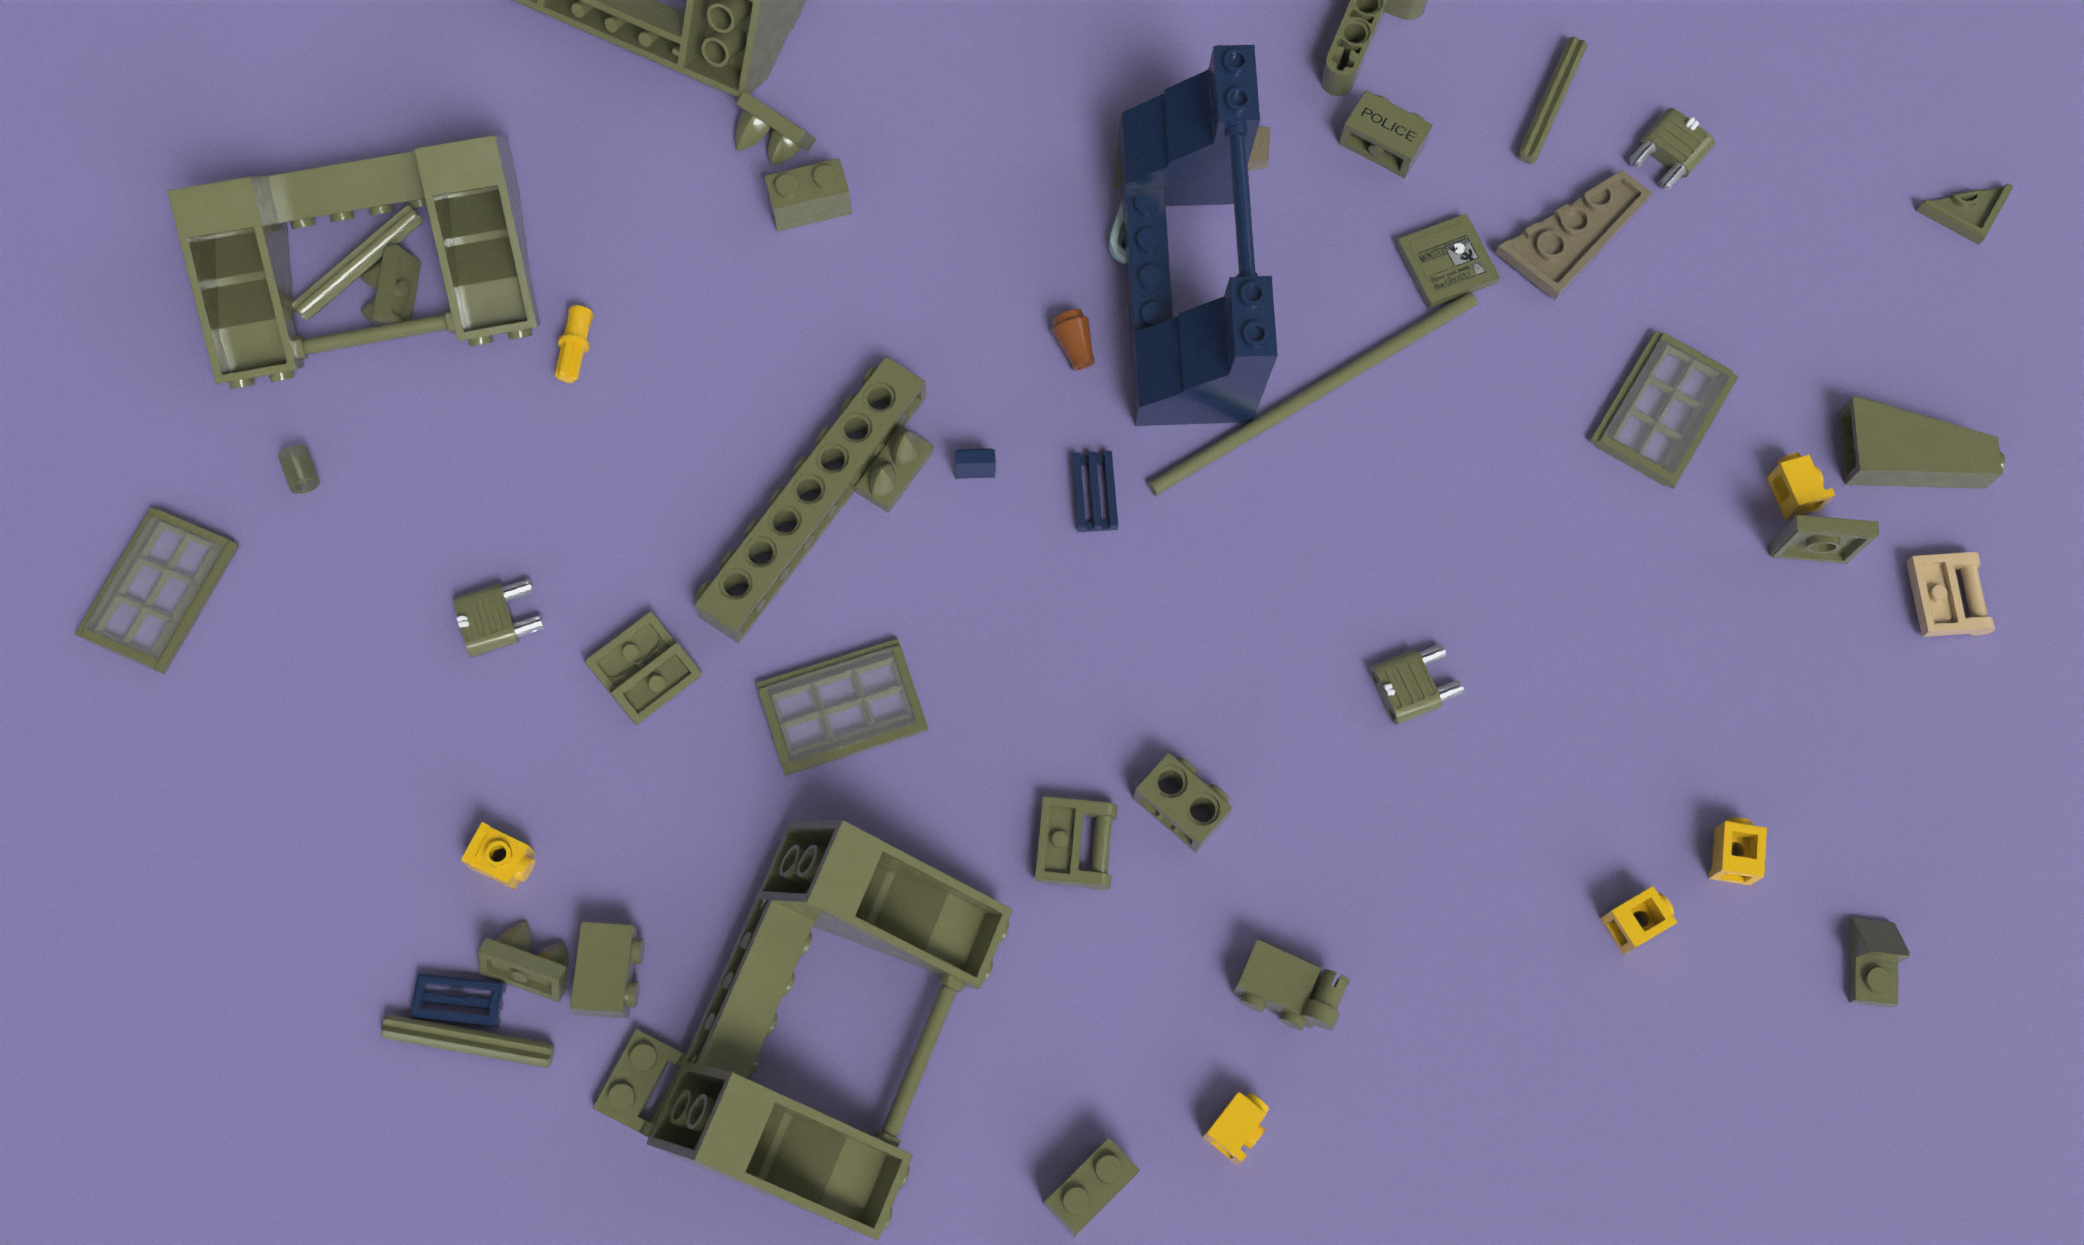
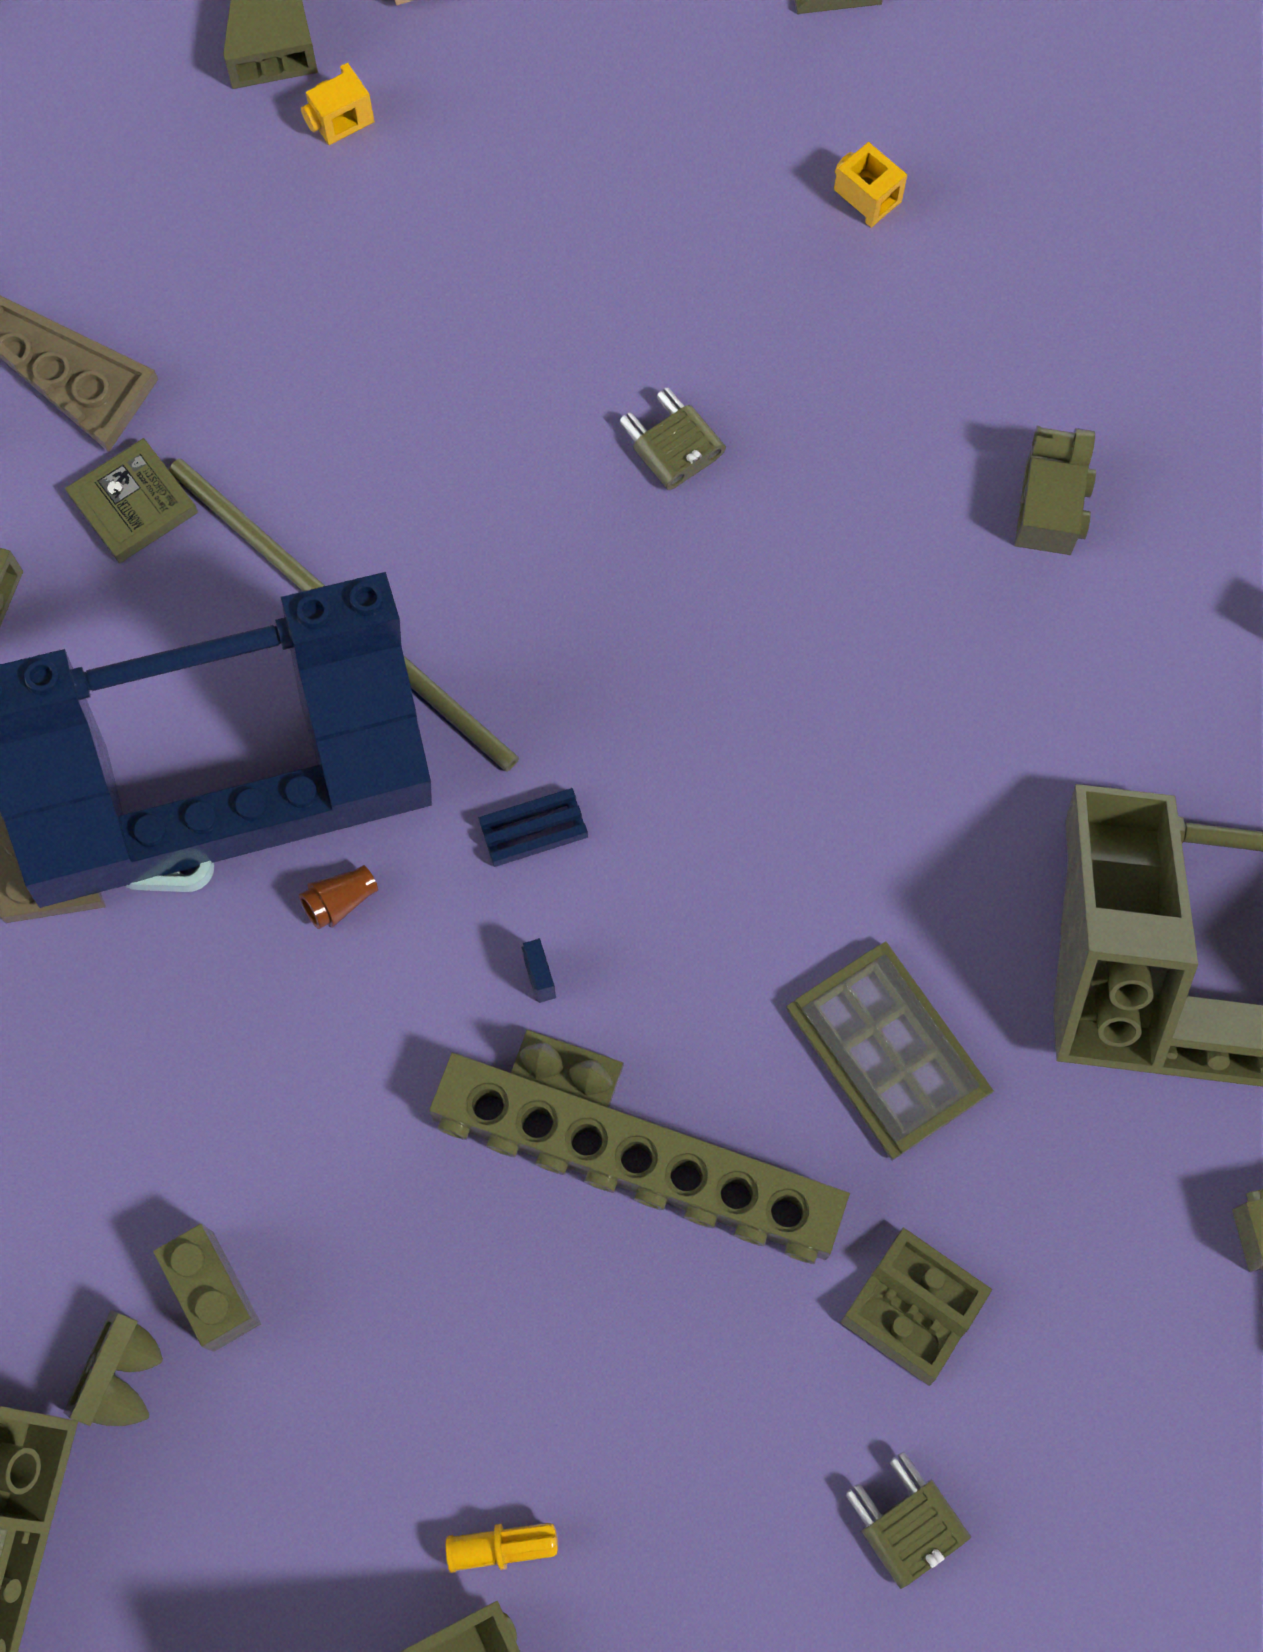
camera: 100 degrees left, 0 degrees up
(484, 848) = (1196, 1414): yellow brick -> none
(1061, 842) = (969, 759): olive plate -> none
(1174, 809) = (892, 642): olive brick -> none
(1238, 1126) = (1215, 513): yellow brick -> none
(1664, 409) = (271, 250): clear piece -> none
(1751, 844) = (768, 106): yellow brick -> none
(1823, 539) = (404, 66): olive tile -> none

